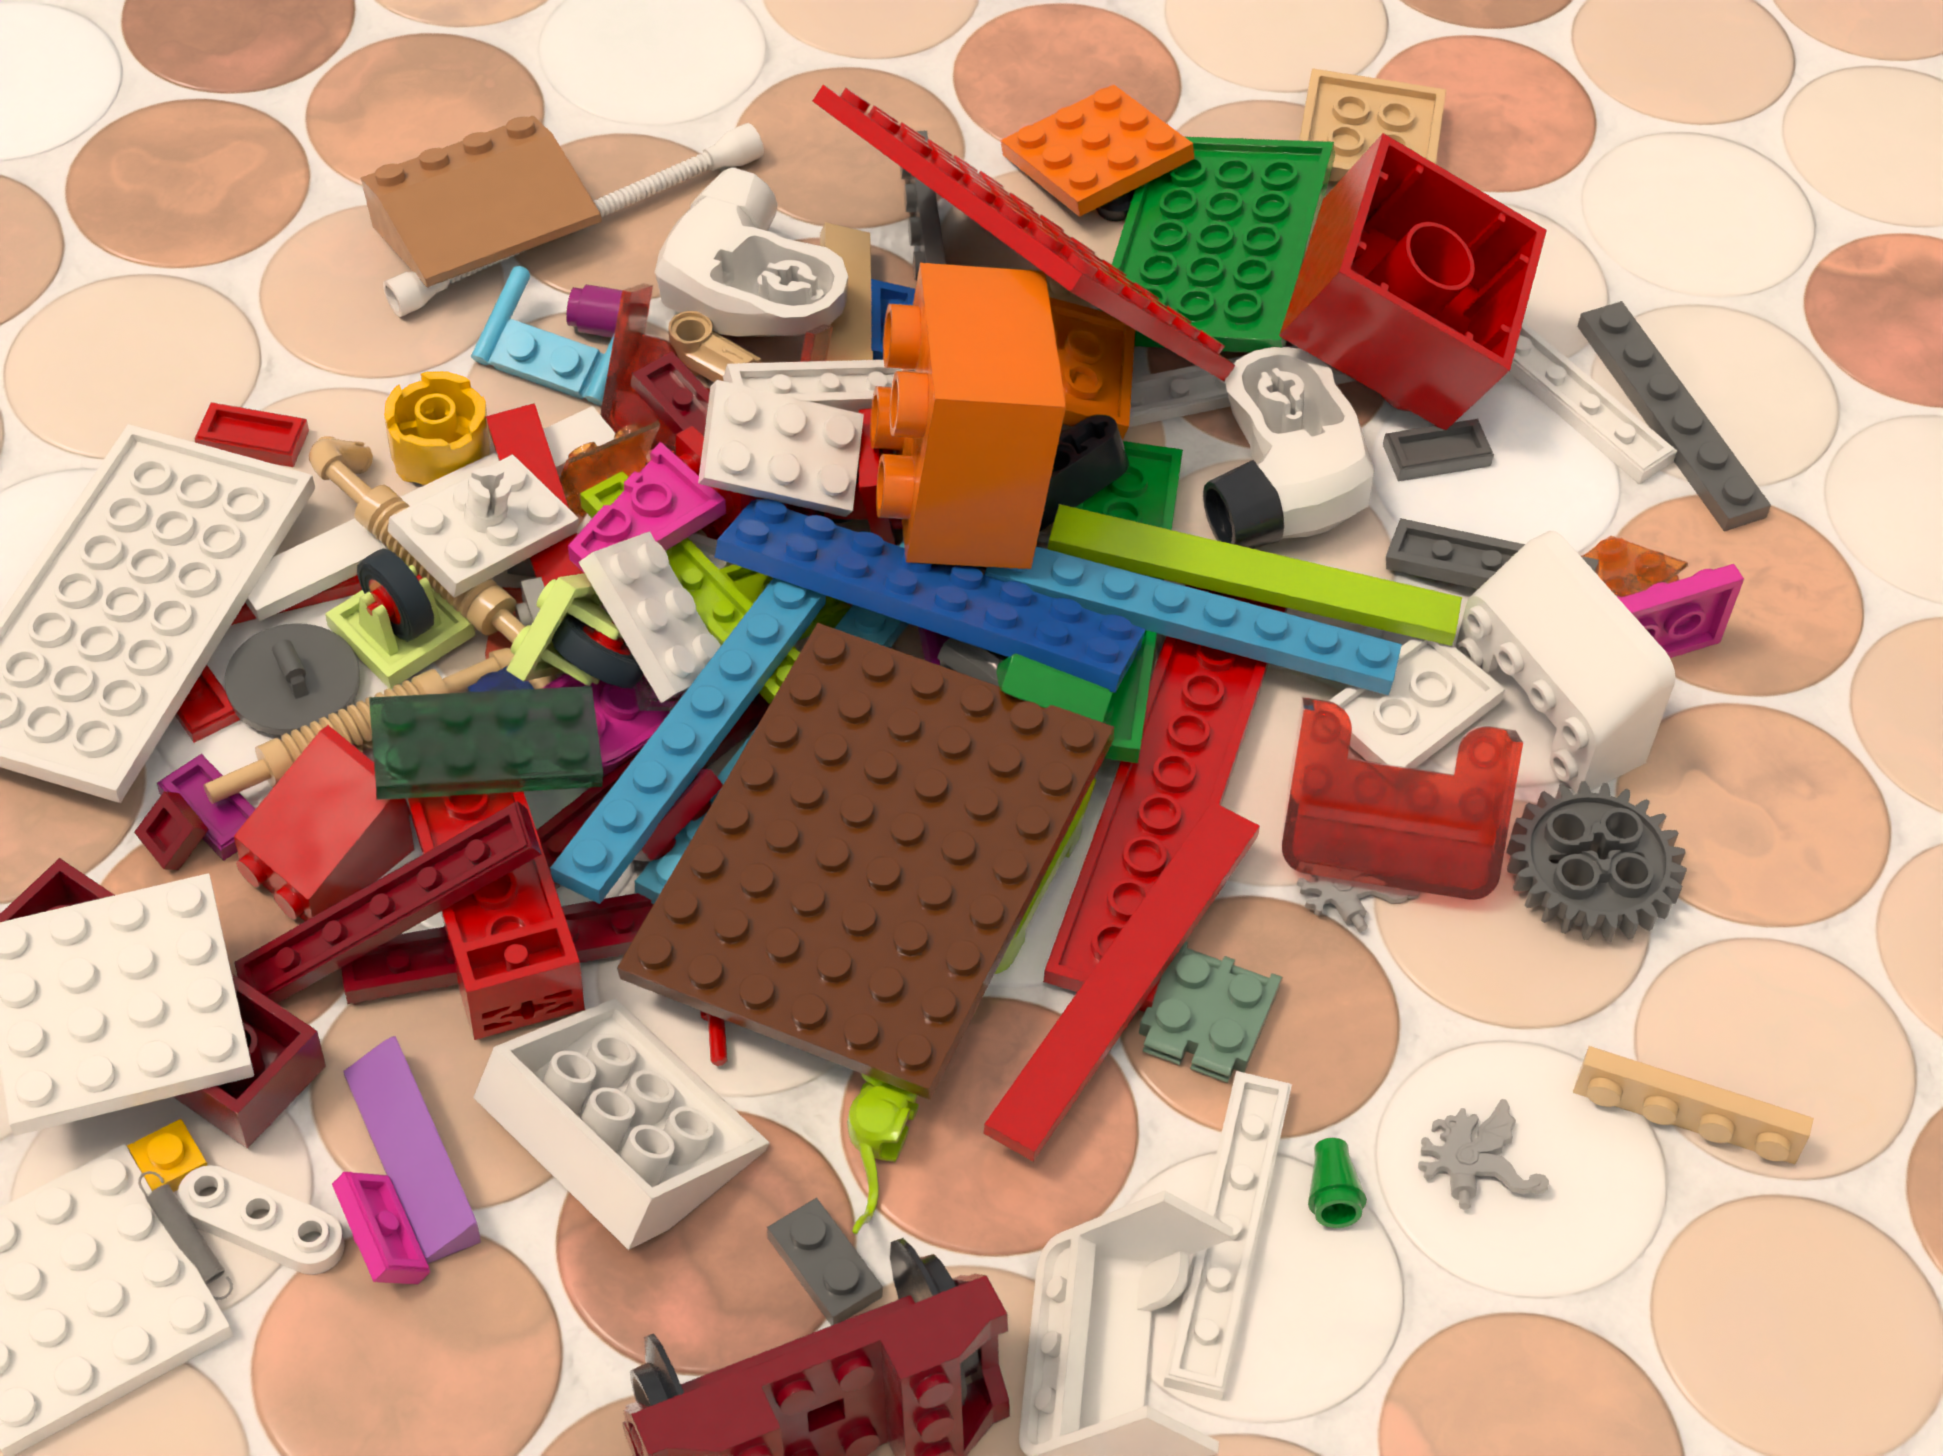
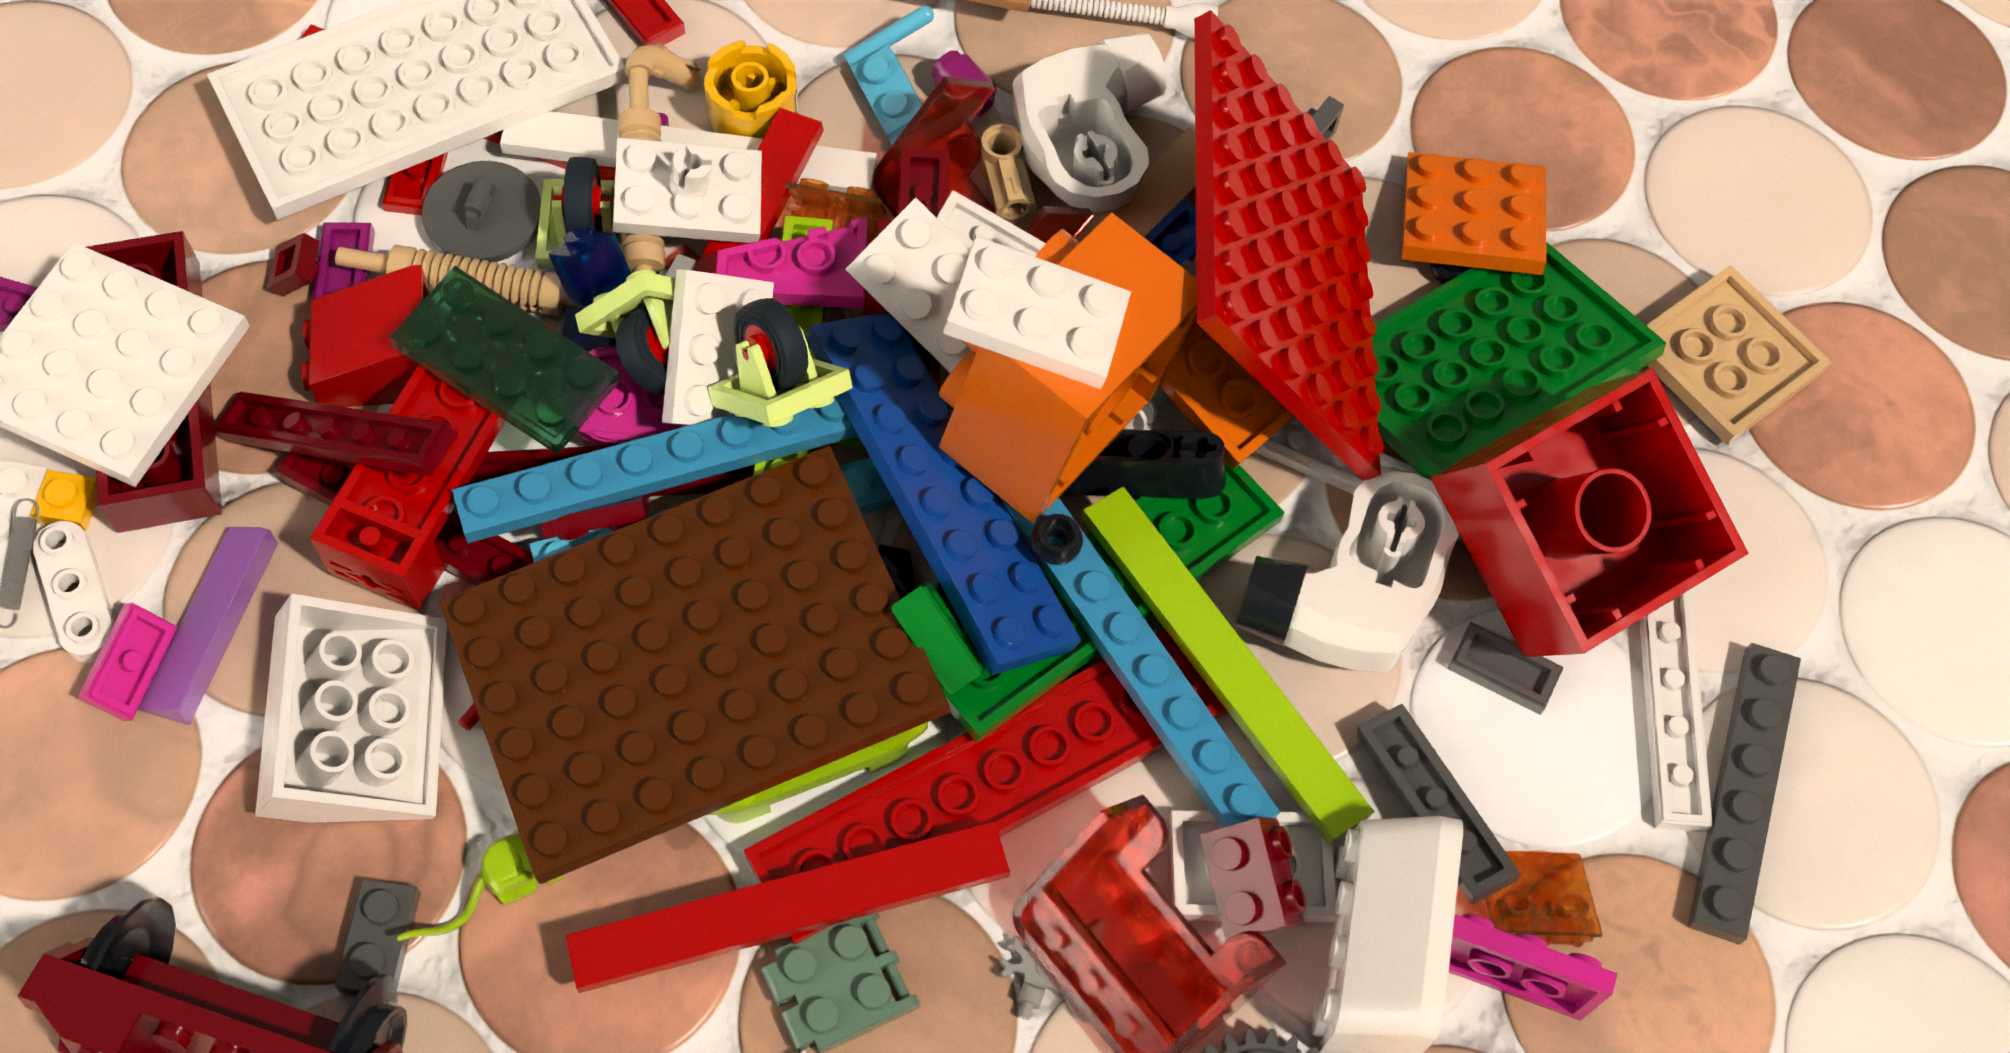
camera: 40 degrees right, 10 degrees up
(464, 638) = (589, 264): none -> clear blue brick
(729, 582) = (775, 368): none -> plate
(956, 356) = (1038, 312): none -> white plate
(1063, 563) = (1056, 526): none -> black plate
(1429, 700) = (1253, 877): none -> bracket

